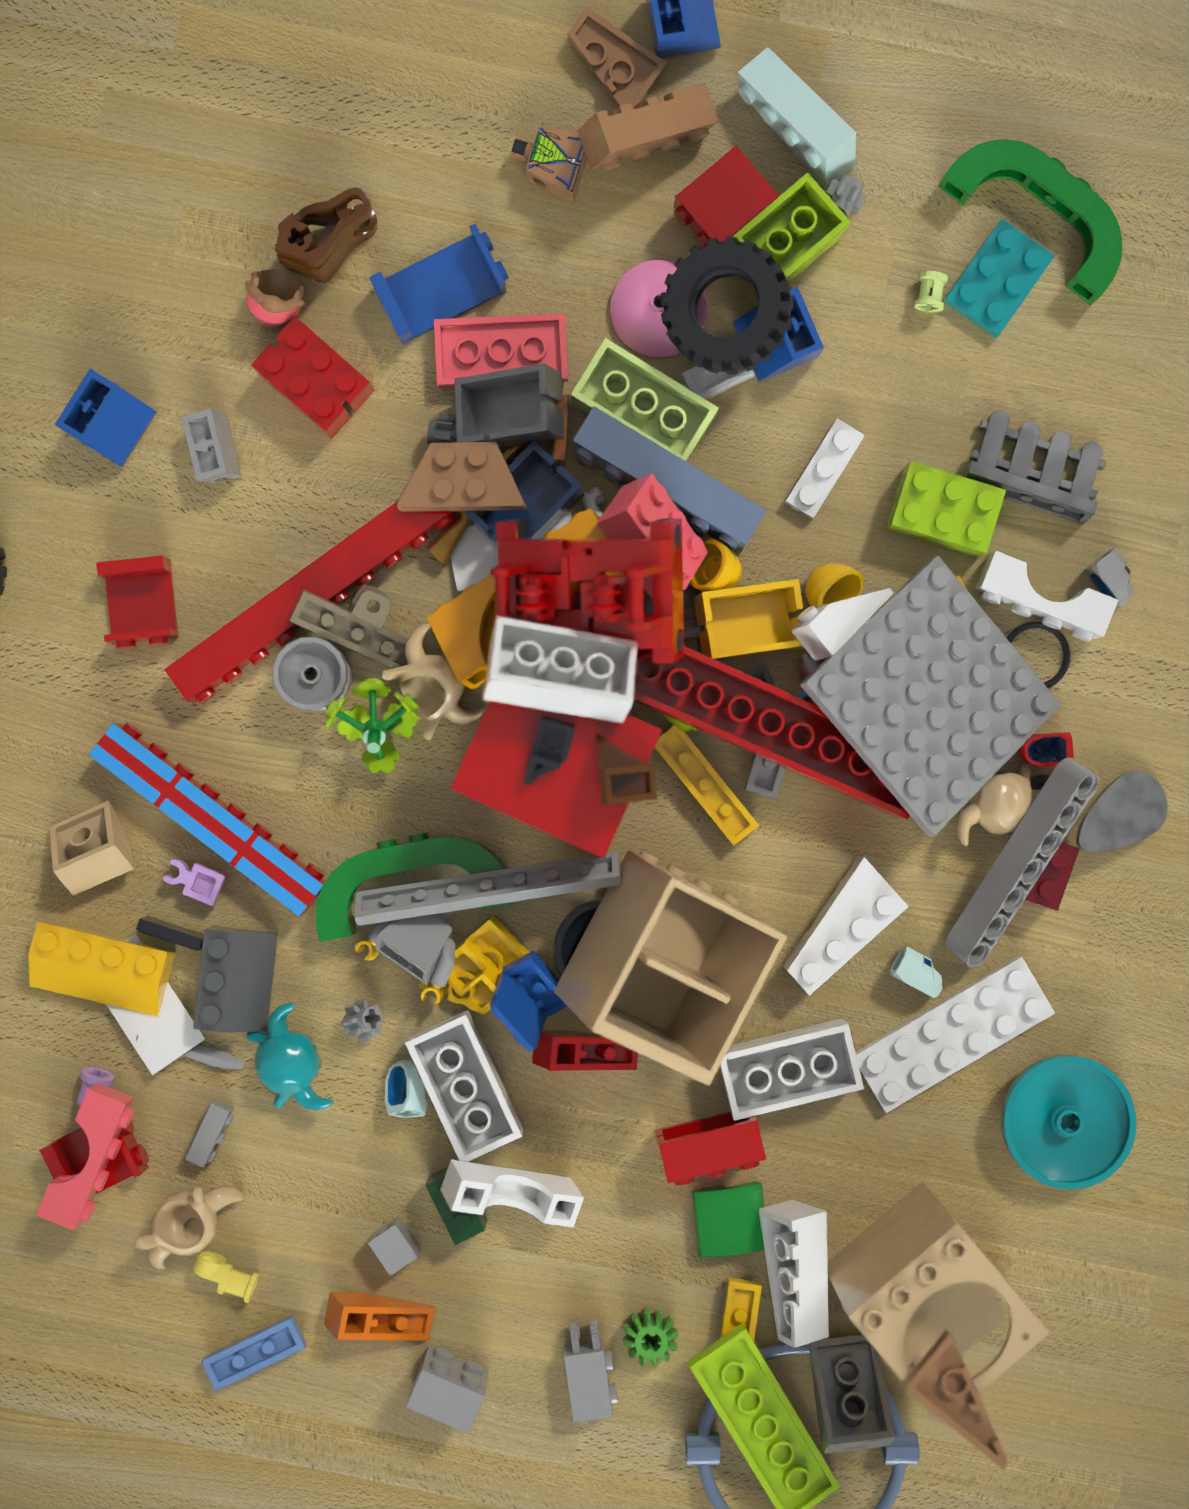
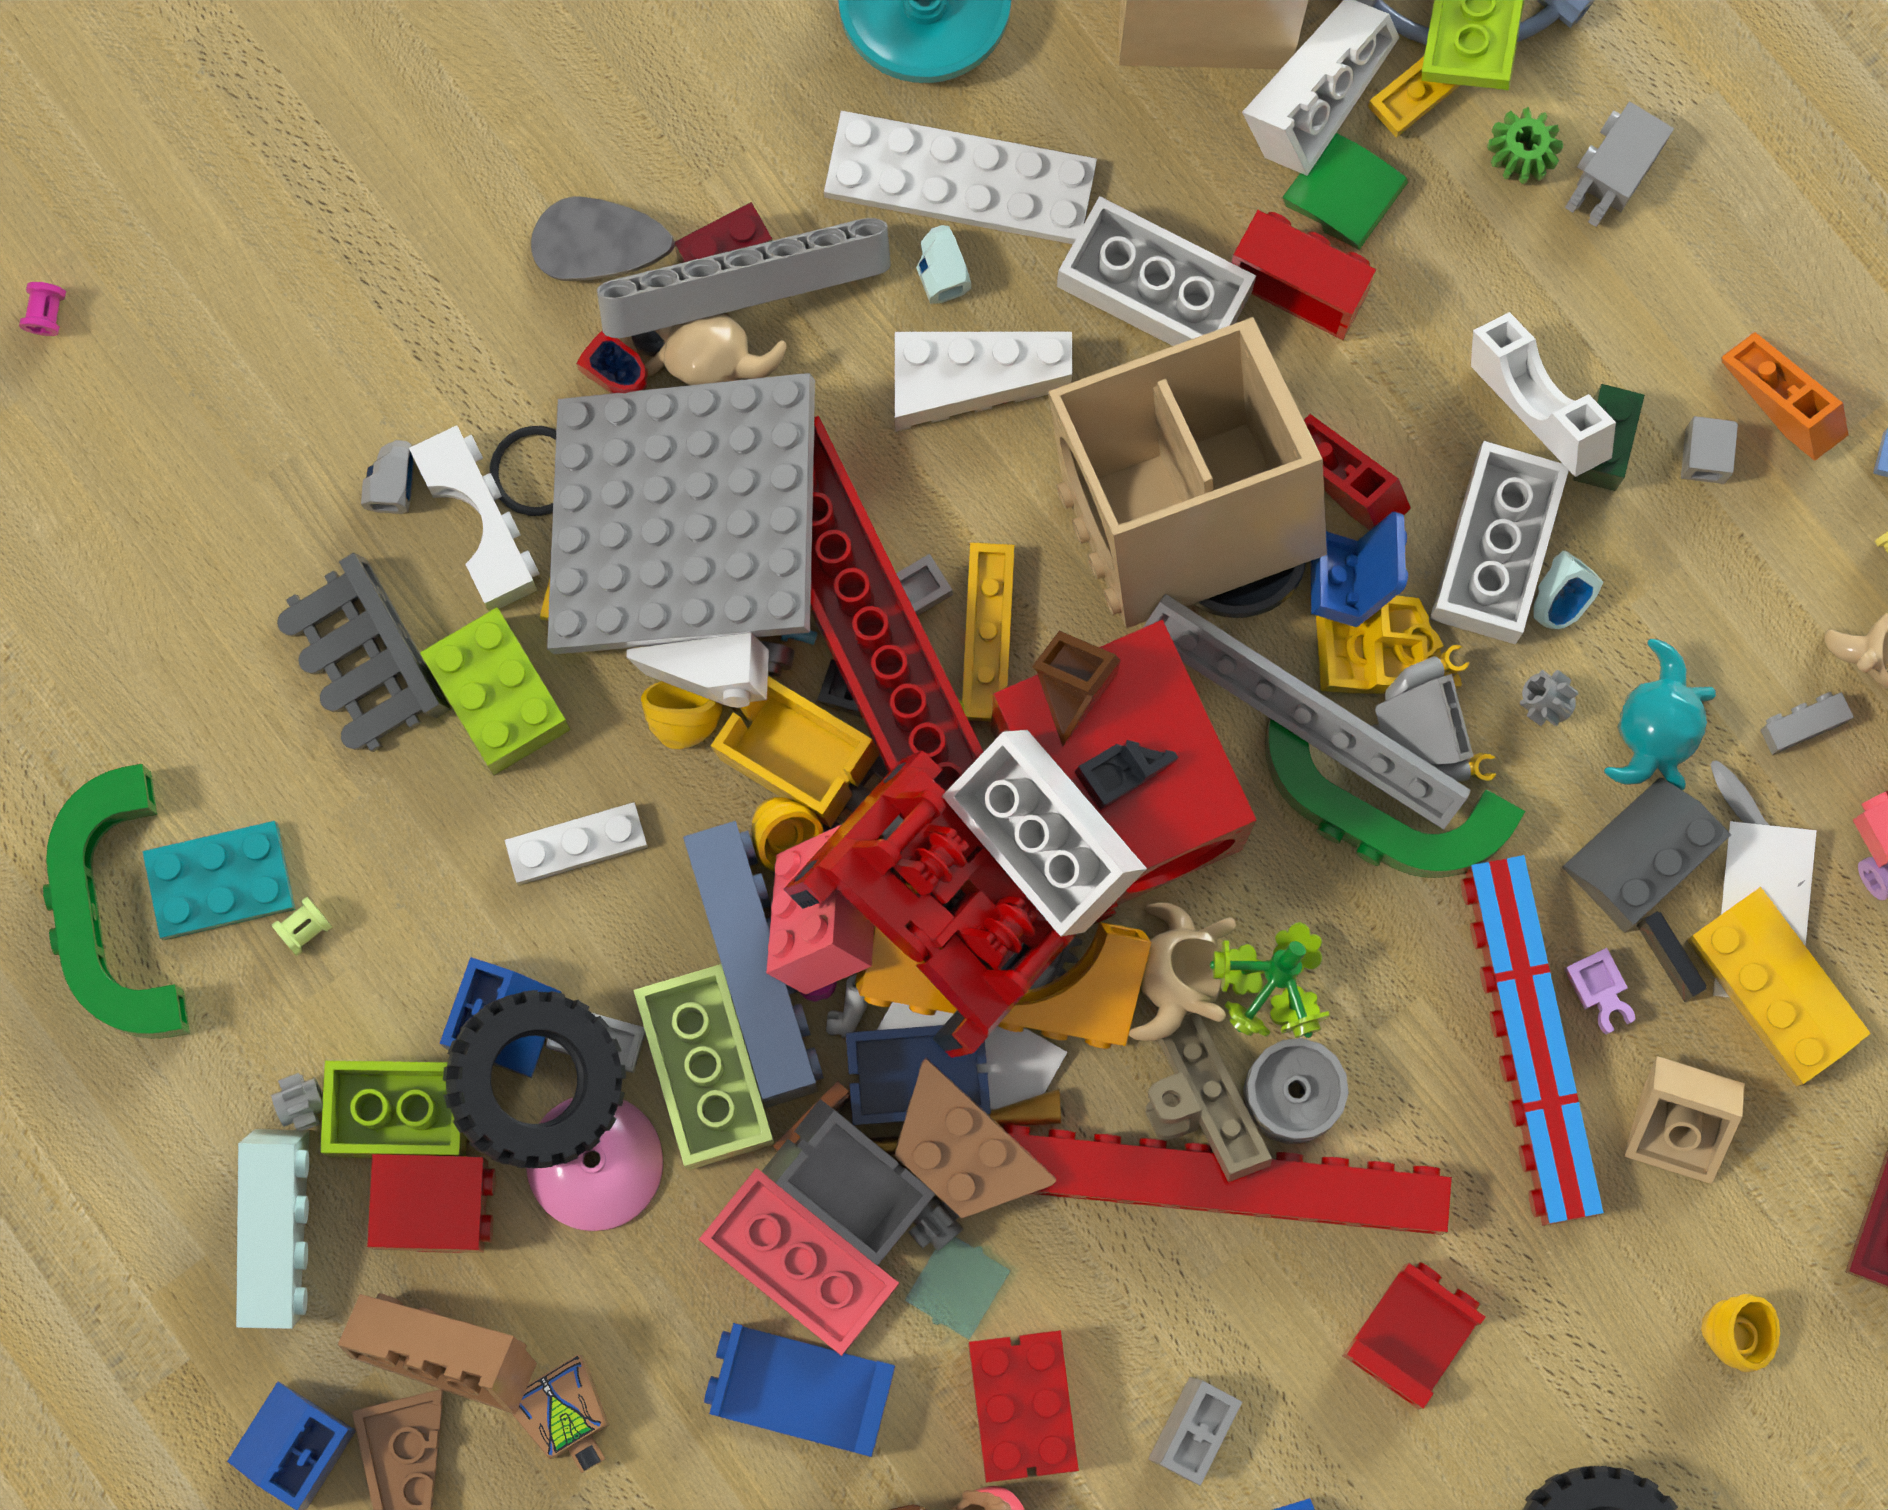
camera: 145 degrees left, 10 degrees down
(405, 414) = (958, 1286): none -> clear light blue piece
(448, 1389) = (1772, 265): light grey brick -> none

